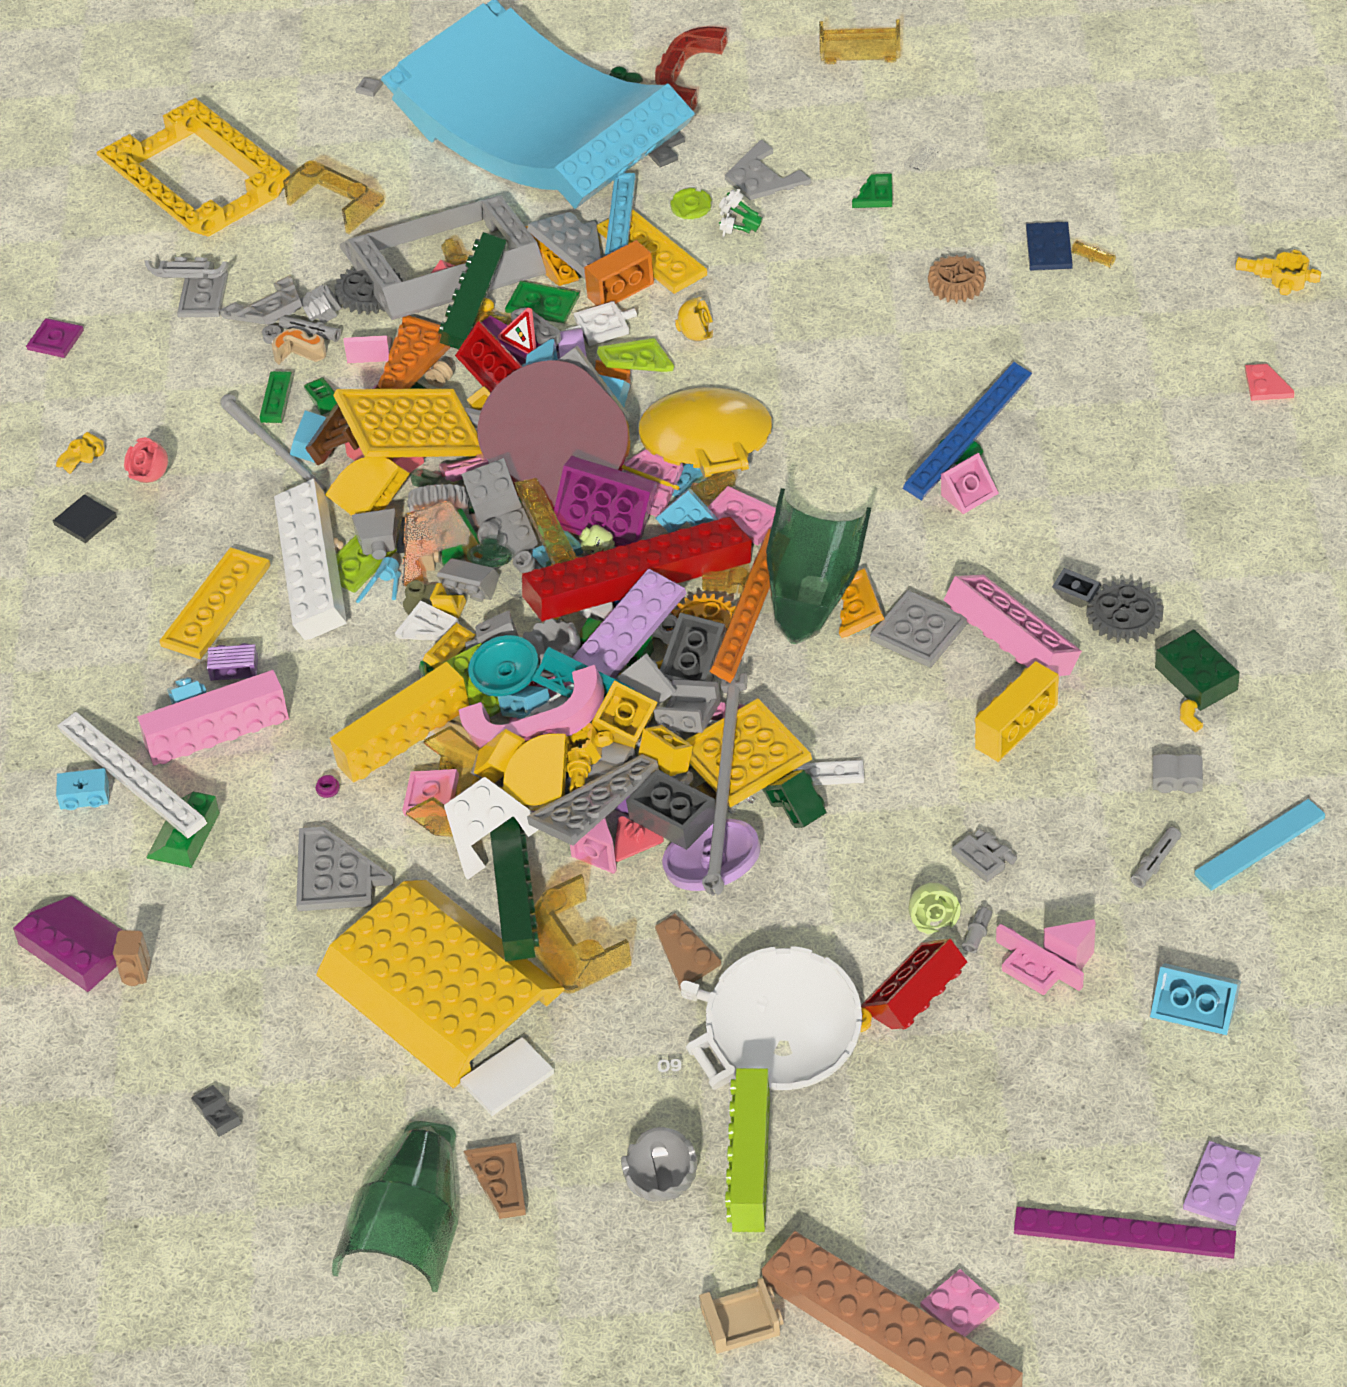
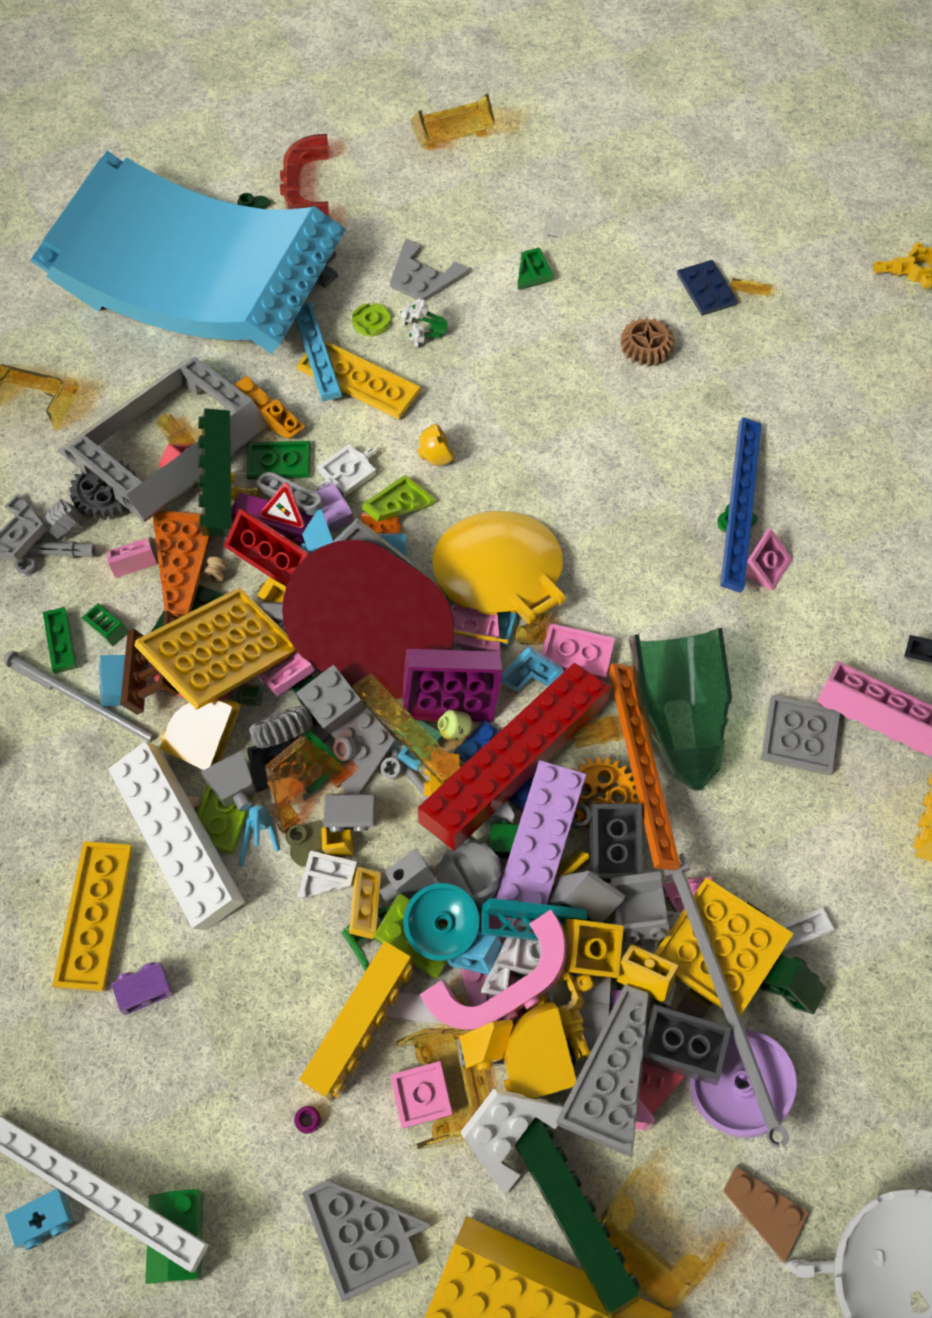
camera: 25 degrees left, 15 degrees up
(185, 689) = (113, 1057): medium azure brick -> none
(213, 717) = (151, 1080): bright pink brick -> none
(299, 343) = (57, 569): tan animal -> none
(368, 87) = (13, 265): light grey tile -> none
(490, 550) = (359, 772): clear green piece -> none
(569, 239) = (284, 390): light grey wing -> none
(619, 274) = (344, 415): orange brick -> none
(859, 606) = (741, 732): light orange wing -> none

